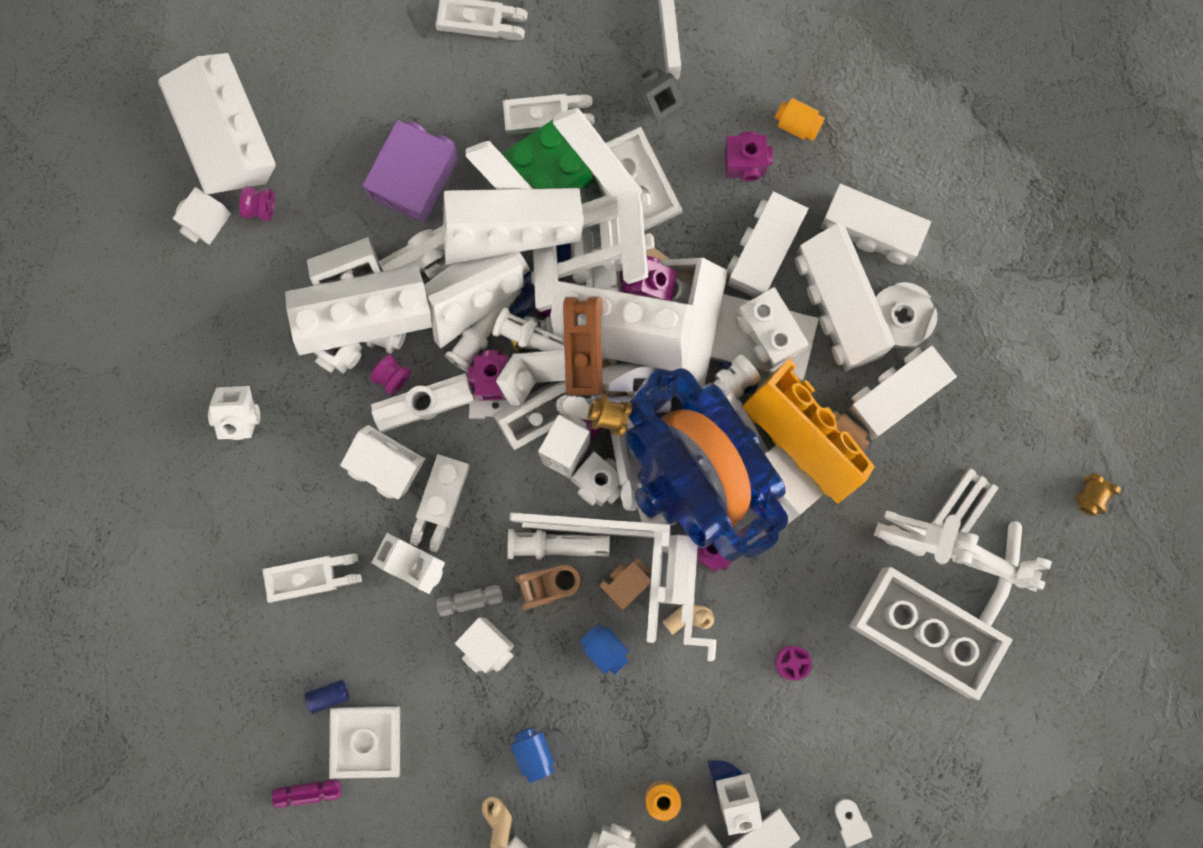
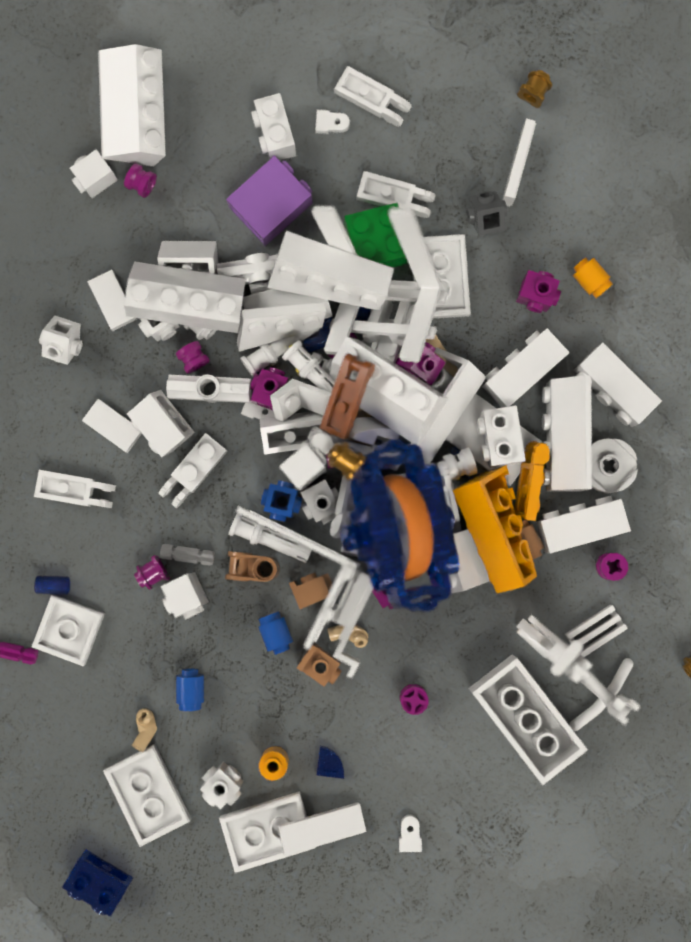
camera: 20 degrees right, 5 degrees up
(274, 347) = (110, 299): none -> white tile
(328, 487) = (112, 425): none -> white tile
(385, 89) = (276, 132): none -> white brick
(409, 563) = (151, 509): white brick -> none
(436, 637) = (151, 573): none -> magenta brick
(440, 64) = (326, 122): none -> white piece
(550, 483) = (271, 496): none -> blue brick
(657, 665) = (315, 655): none -> medium nougat brick
(739, 804) = (330, 789): white brick -> none
(824, 364) = (531, 480): none -> light orange hinge
(947, 431) = (606, 564): none -> magenta wheel

